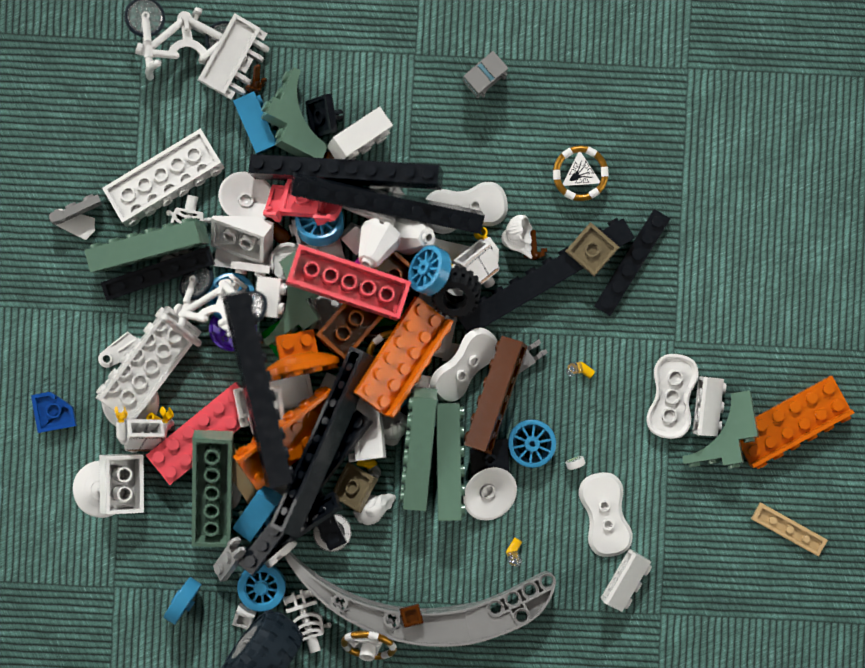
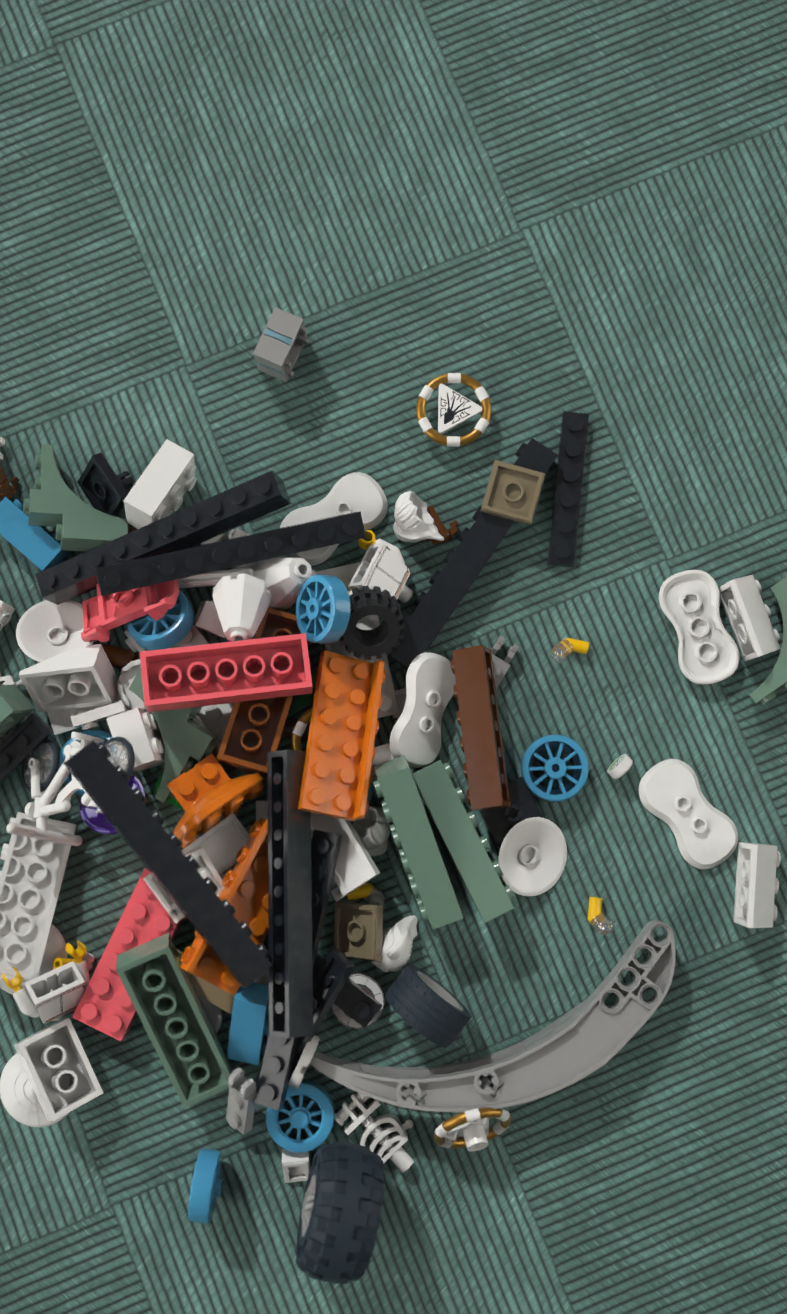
camera: 25 degrees left, 5 degrees down
(376, 556) = (427, 1006): none -> black wheel
(411, 615) = (509, 1064): reddish brown tile -> none

